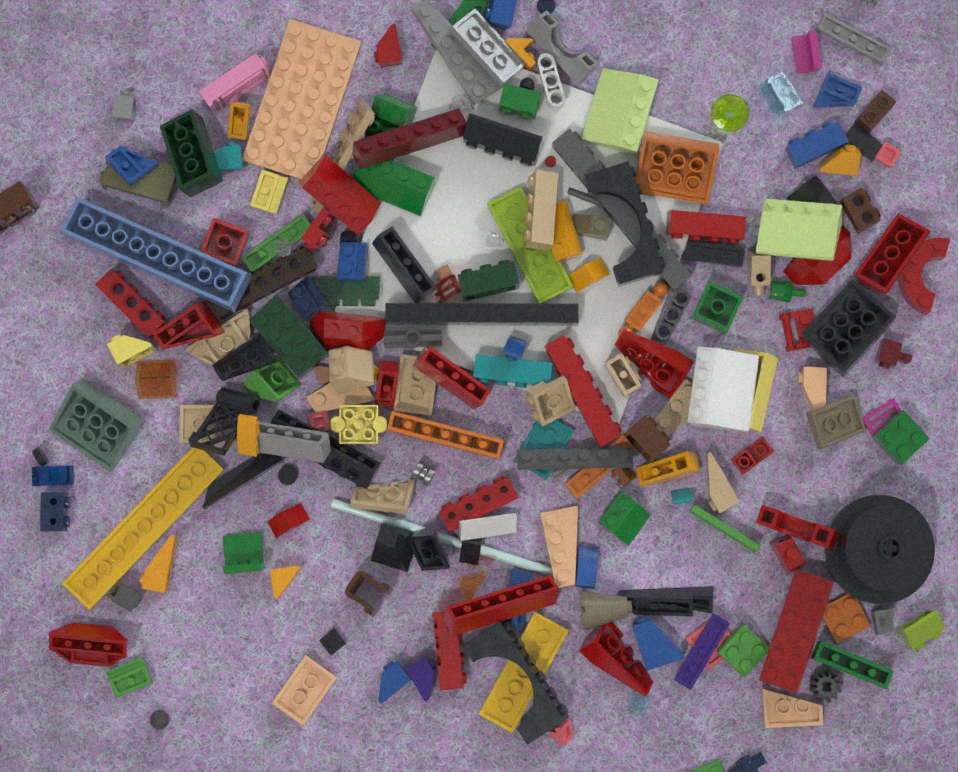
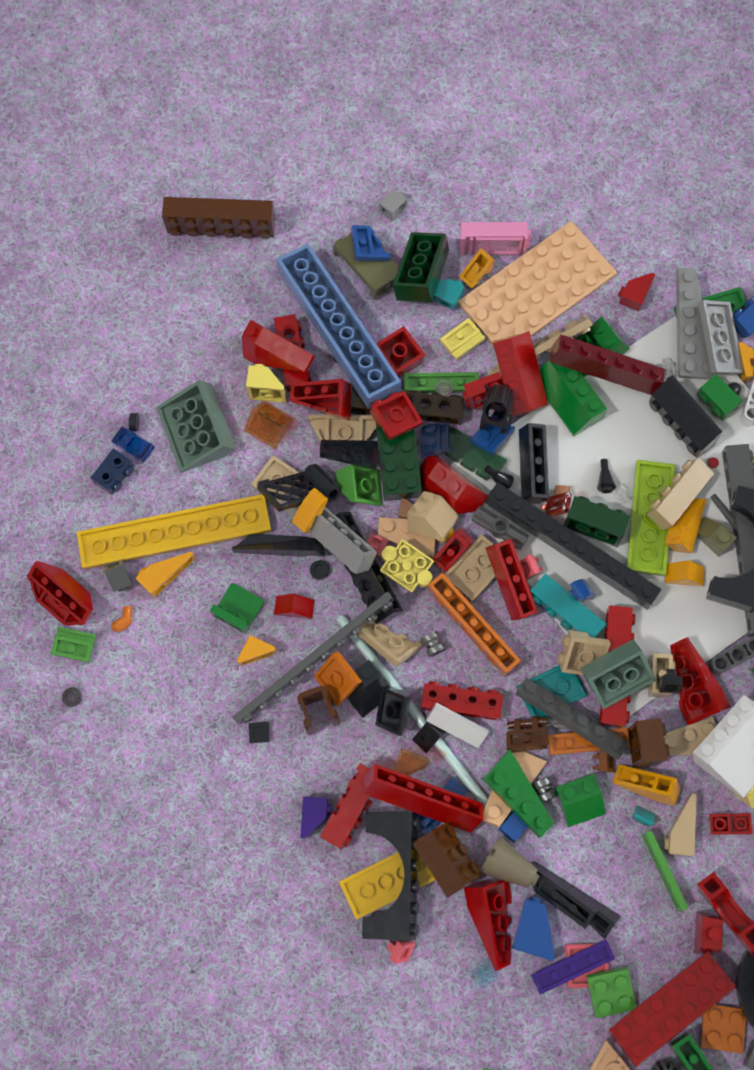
camera: 35 degrees right, 10 degrees down
(115, 314) = (272, 350): none -> red wedge
(157, 628) = (123, 622): none -> orange arm
(261, 303) = (395, 415): none -> red plate
(304, 690) = (206, 756): light nougat plate -> none
(335, 561) = (308, 664): none -> dark grey plate
(340, 229) = (501, 399): none -> black piece
(366, 555) = (337, 678): none -> orange plate
(387, 295) = (499, 476): none -> black cone
(392, 680) = (285, 800): blue slope -> none
(459, 356) = (530, 566): none -> coral tile
(473, 239) = (605, 483): none -> black cone
(551, 499) = (527, 739): none -> reddish brown plate
(552, 639) = (447, 859): none -> reddish brown brick
(569, 547) = (517, 793): none -> green wing
(588, 399) = (618, 674): none -> sand green slope
(588, 526) = (544, 789): none -> flat silver wheel
(634, 379) = (670, 683): none -> black tile
(645, 308) = (717, 633): orange plate -> none

